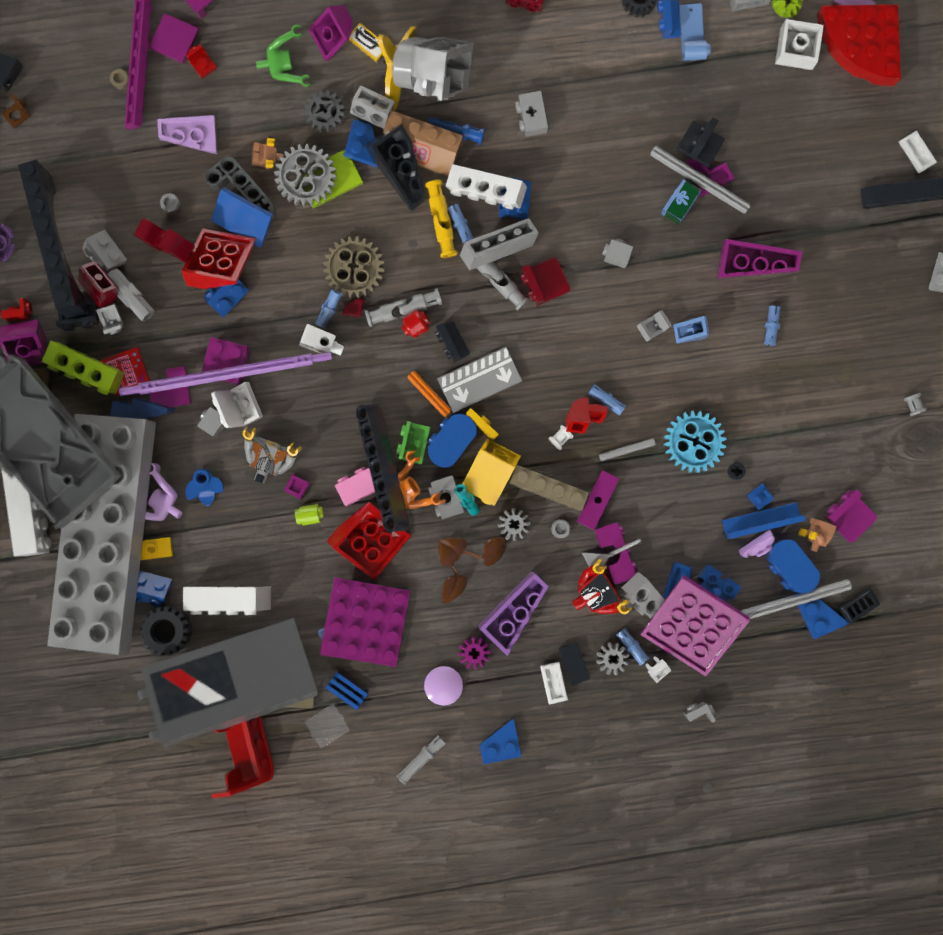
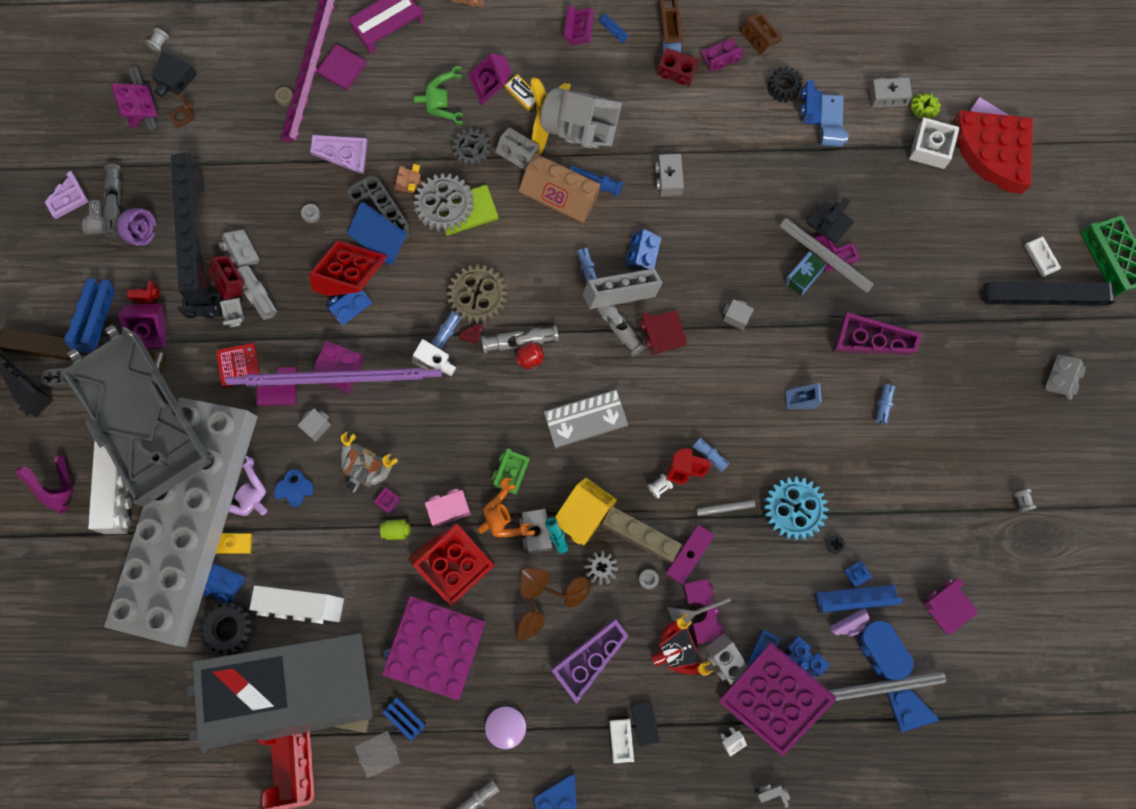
camera: 10 degrees right, 10 degrees down
(110, 376) = (174, 338): lime brick -> none
(139, 409) = (245, 401): dark blue slope -> none
(165, 241) = (296, 244): dark red beam -> none
(200, 61) = (362, 89): red bracket -> none
(237, 406) = (340, 412): white bracket -> none
(359, 136) = (503, 182): blue wing -> none
(382, 468) = (475, 492): black beam -> none
(395, 159) = (533, 200): black wedge -> none
(428, 392) = (534, 426): orange axle -> none
(440, 216) = (568, 253): yellow piece -> none
(451, 441) = (549, 474): blue brick -> none
(453, 341) = (564, 377): black bracket -> none
(461, 175) = (639, 248): white brick -> none
(469, 658) = (536, 701): magenta gear -> none
(483, 424) = (583, 462): yellow plate -> none
(610, 665) = (684, 730): light grey gear -> none
(632, 646) = (709, 713): medium blue pin -> none
(654, 326) = (766, 388): light grey bracket -> none
(819, 533) = (915, 620): nougat piece -> none
(863, 611) = (937, 710): black slope -> none

